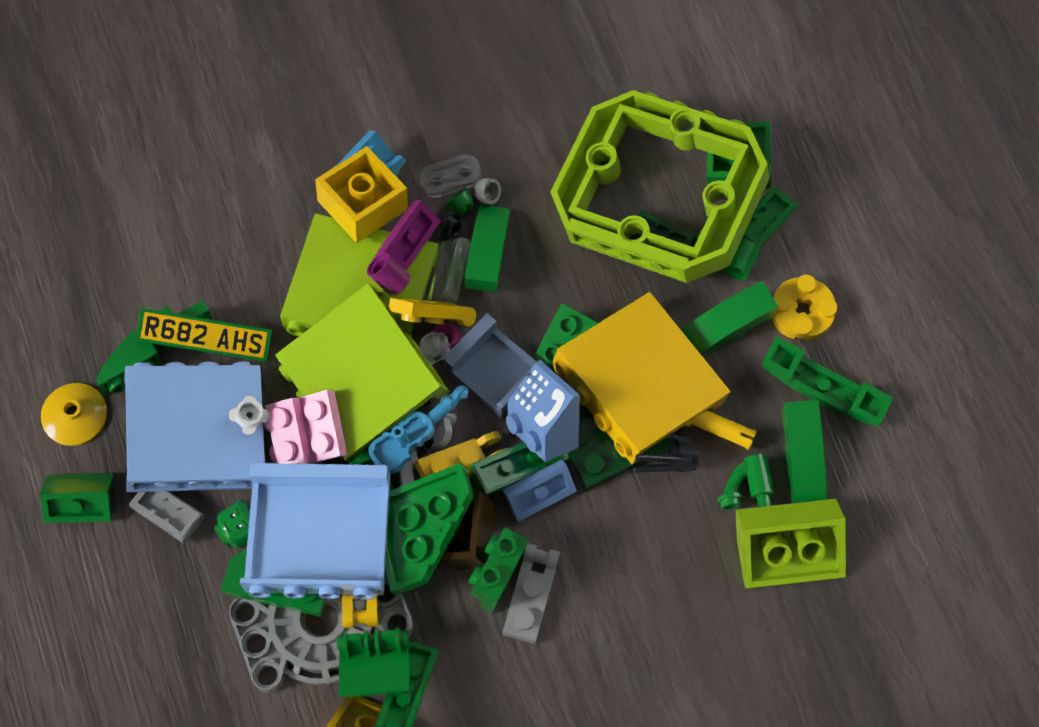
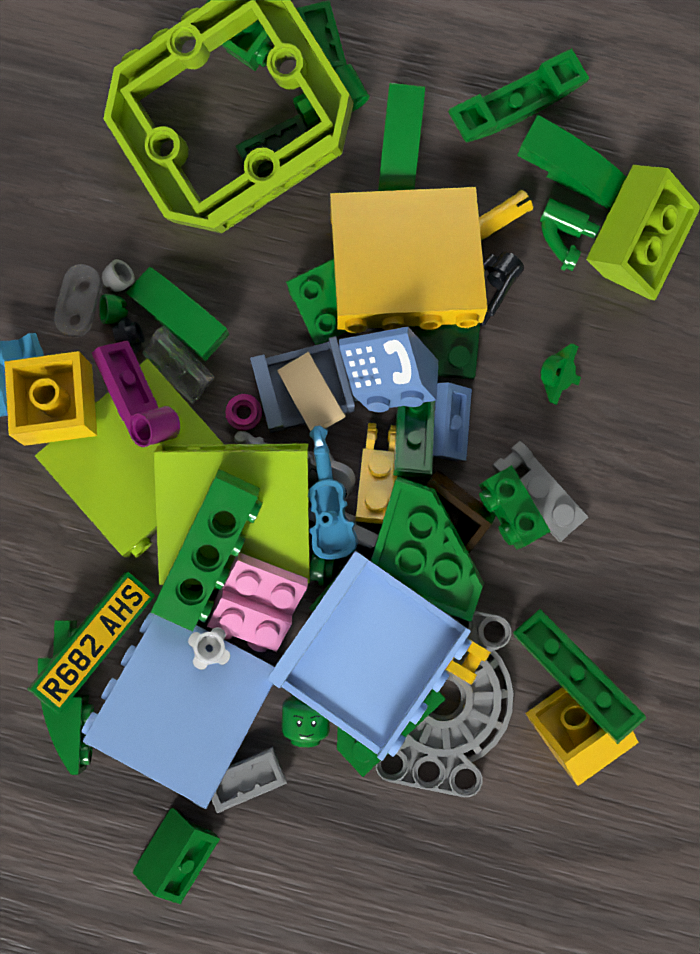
camera: 60 degrees left, 15 degrees up
(80, 426) = (100, 800): yellow dish -> none
(270, 367) = (175, 600): none -> green brick
(373, 663) = (527, 678): green hinge -> none
(433, 311) = (216, 408): yellow plate -> none
(435, 346) = (252, 428): clear plate -> none
(489, 373) = (311, 392): none -> tan slope
(636, 553) = (559, 372): none -> green piece
(808, 291) = (434, 47): yellow plate -> none

